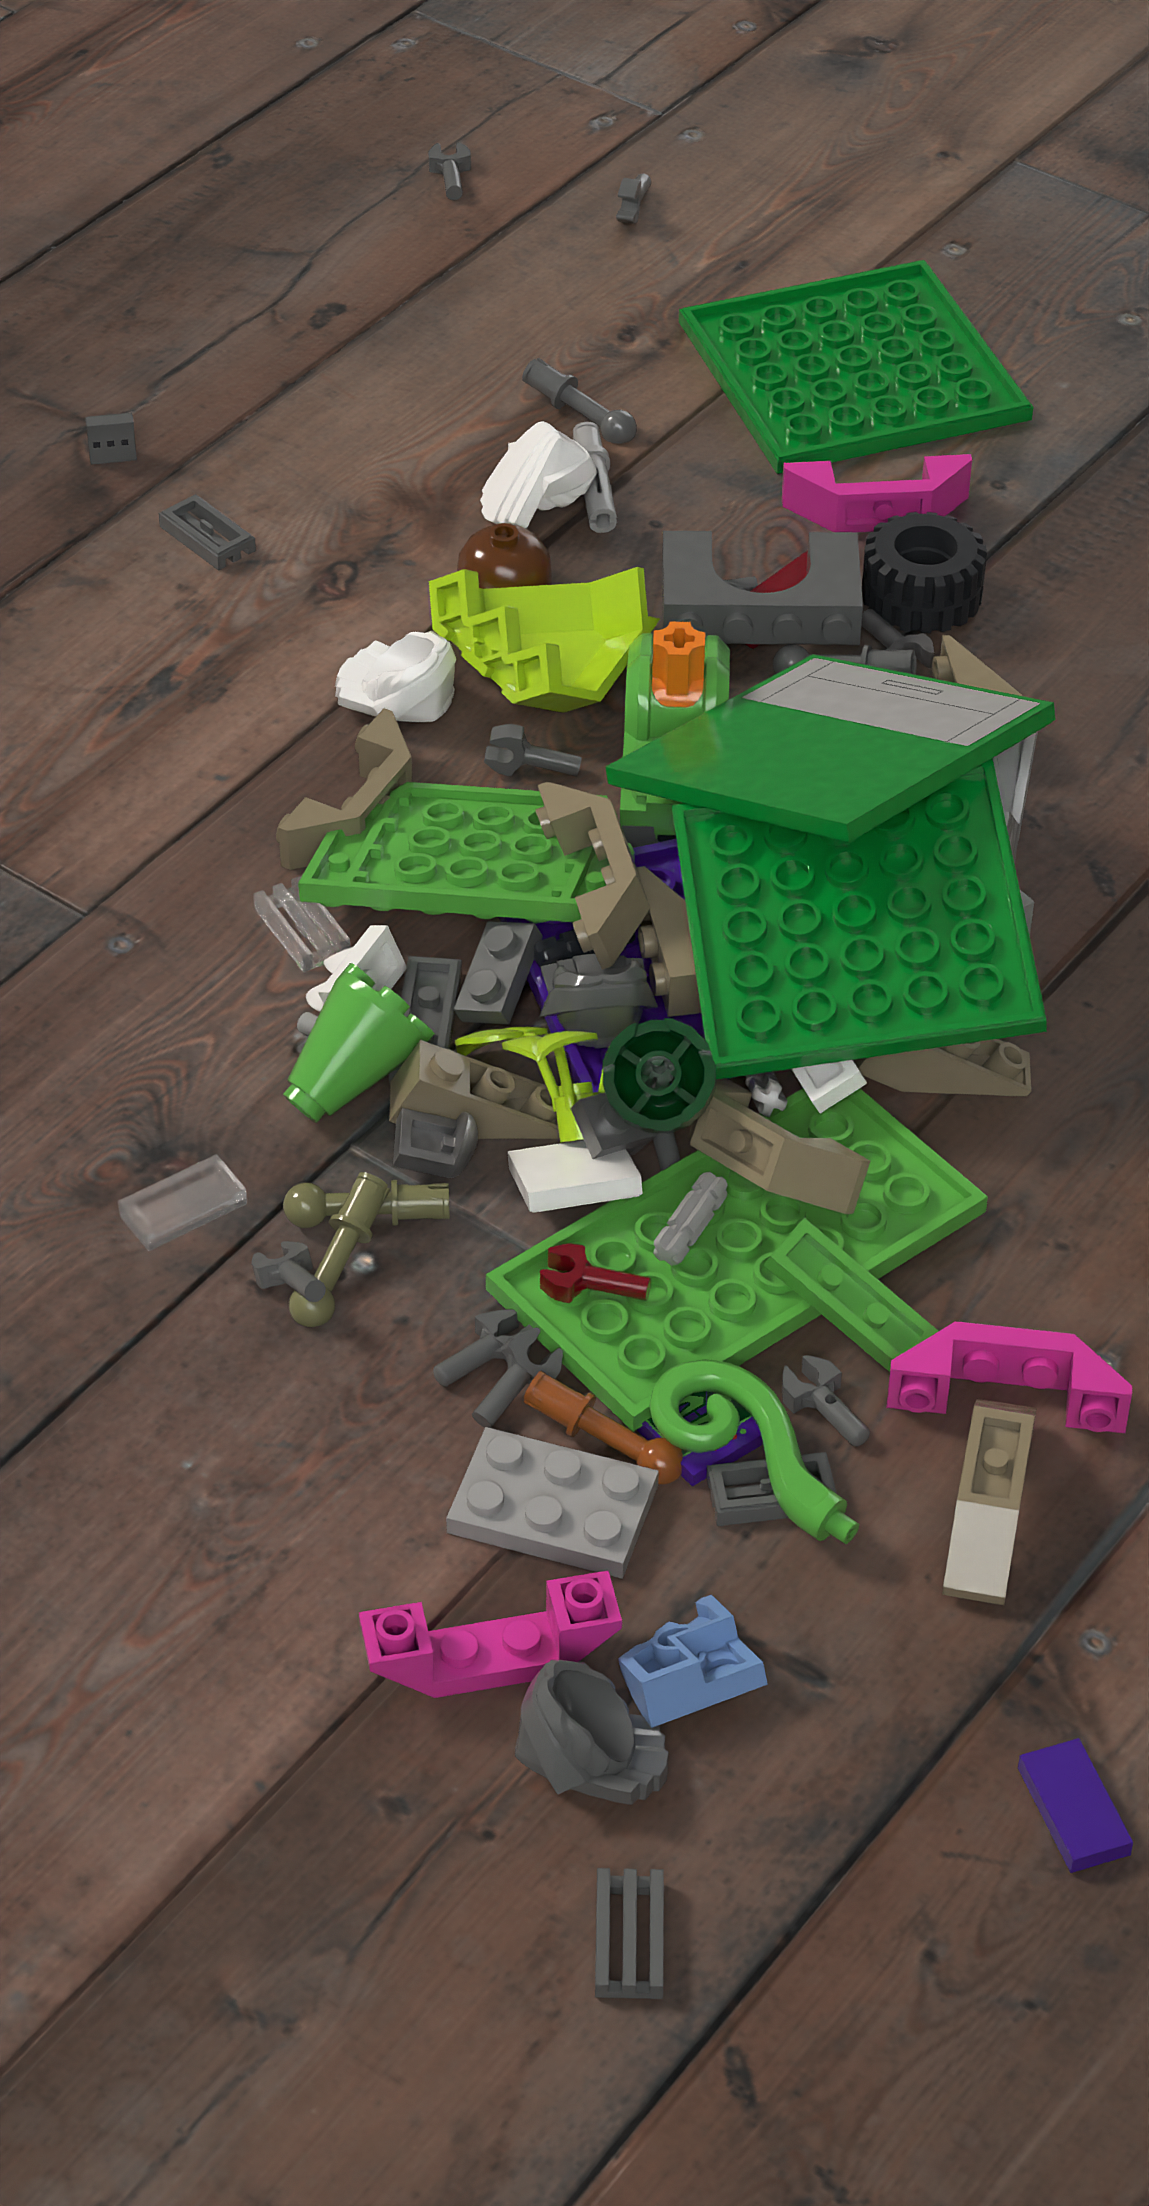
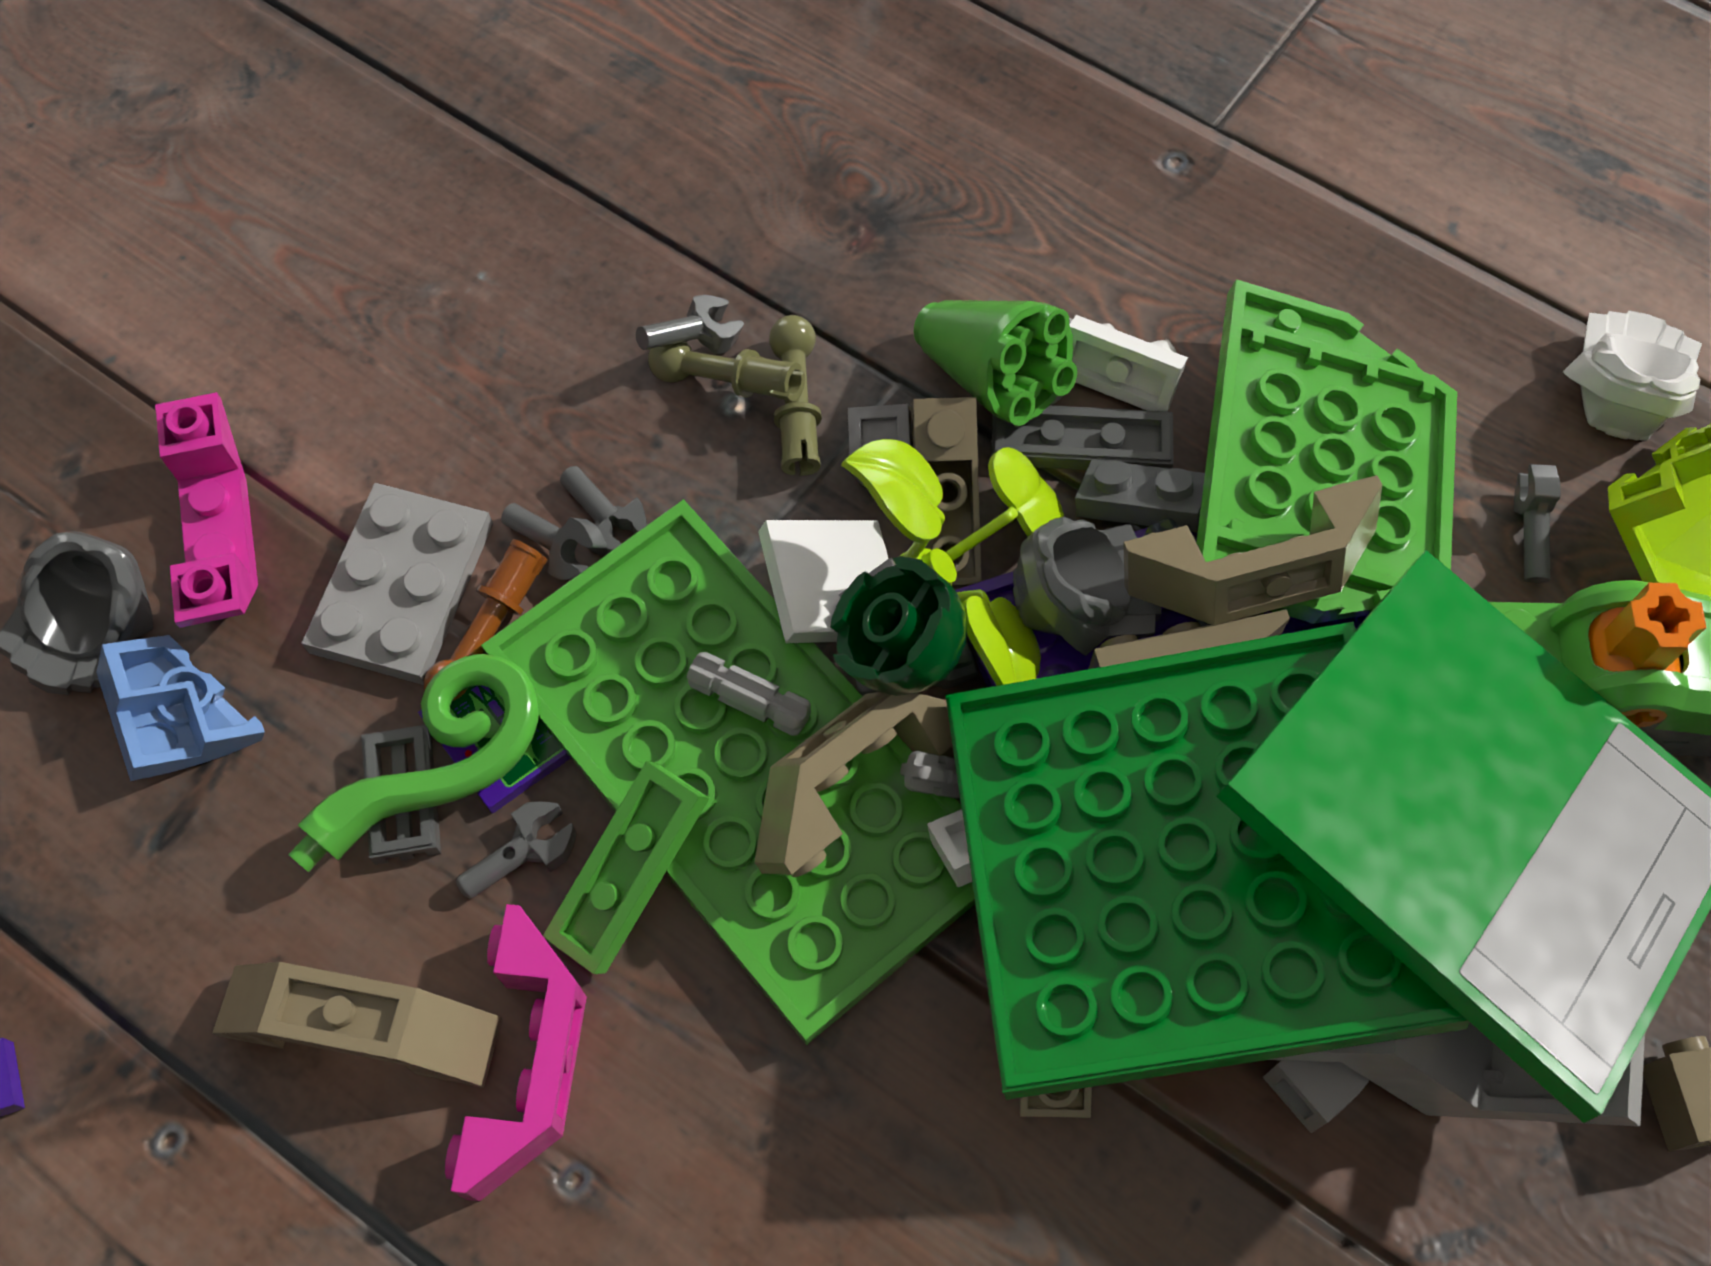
camera: 90 degrees right, 20 degrees up
(182, 1202) = (804, 240): clear tile -> none
(267, 909) = (1193, 303): clear tile -> none
(385, 765) = (1509, 367): dark tan slope -> none
(583, 1275) = (666, 591): dark red bar -> none

